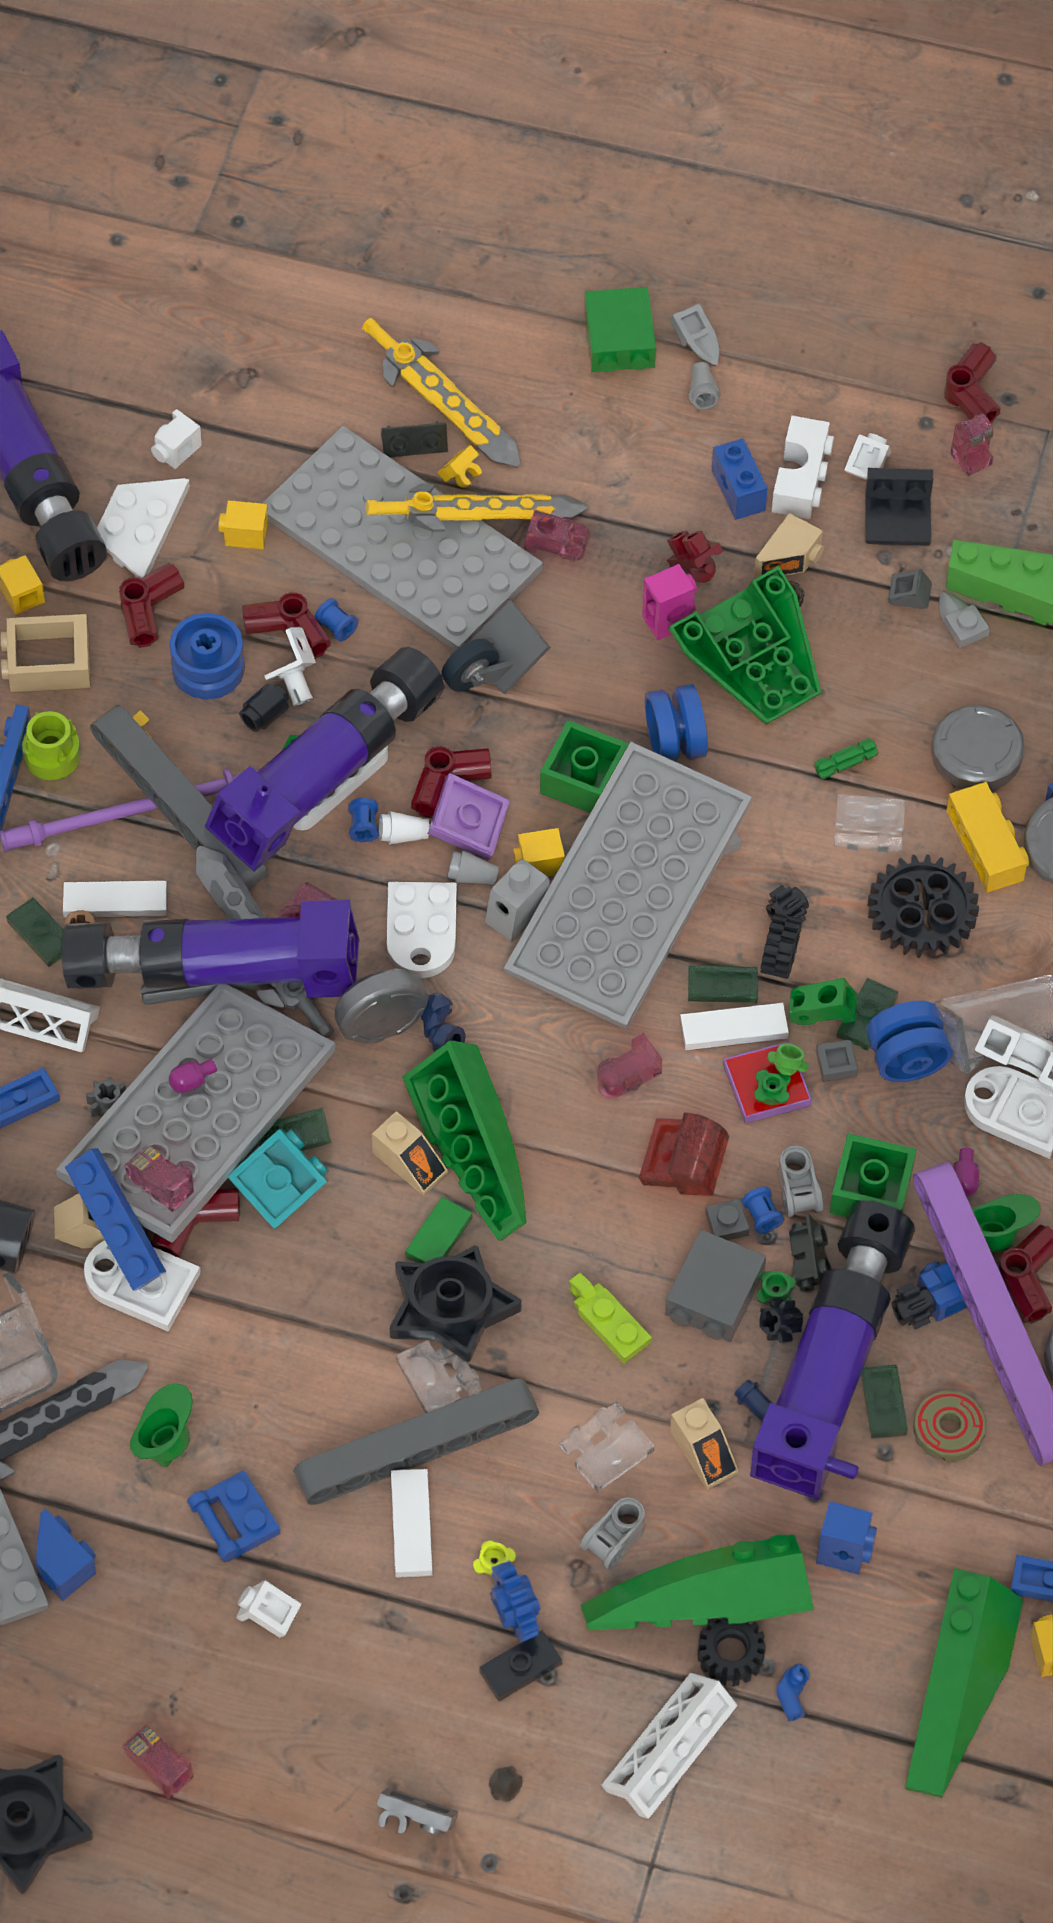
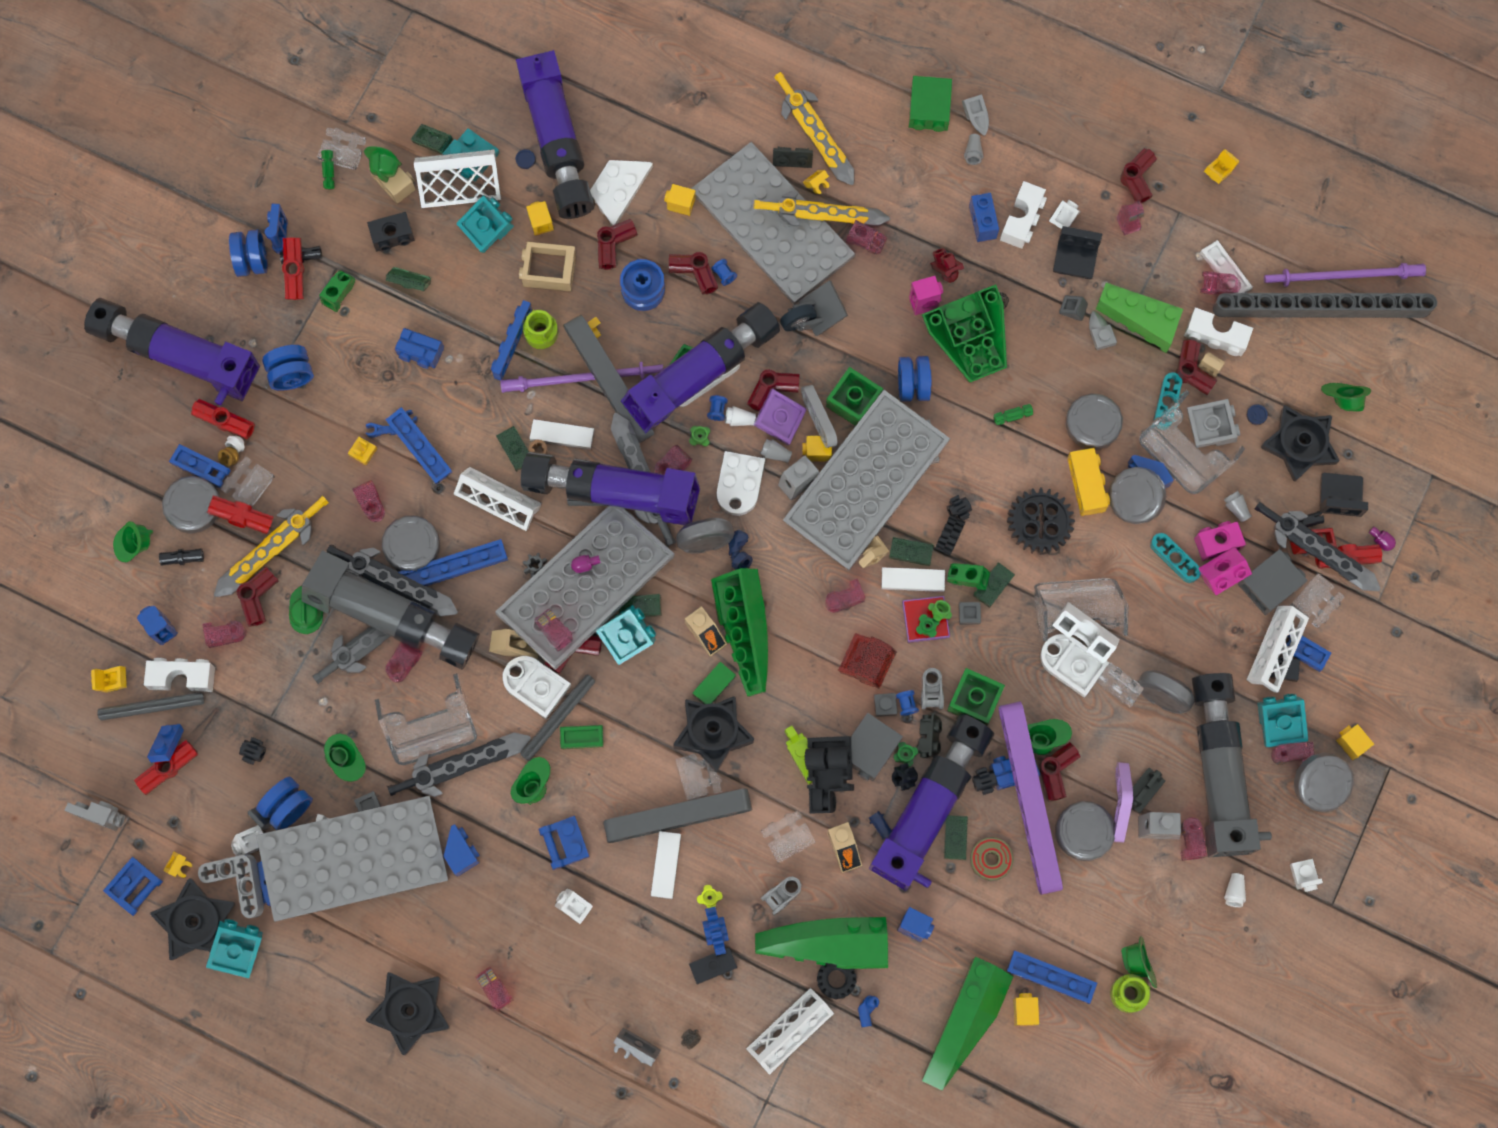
camera: 10 degrees right, 15 degrees up
(115, 1219) = (524, 650): blue plate -> none
(177, 440) = (649, 136): white brick -> none
(187, 1325) = (557, 717): none -> dark grey axle
(233, 1349) = (581, 737): none -> green tile
(264, 707) = (671, 323): black brick -> none
(292, 672) = (691, 305): white bracket -> none
(342, 858) = (699, 430): none -> bright green plate
(532, 802) = (819, 416): none -> light grey beam
(654, 1326) = (829, 769): none -> black plate
(663, 993) = (873, 553): none -> tan bracket
(790, 548) = (1005, 269): tan slope -> none
(870, 816) = (1020, 454): clear plate -> none
(909, 1041) = (1014, 612): blue wheel -> none
(967, 1171) = (1032, 700): magenta cylinder -> none

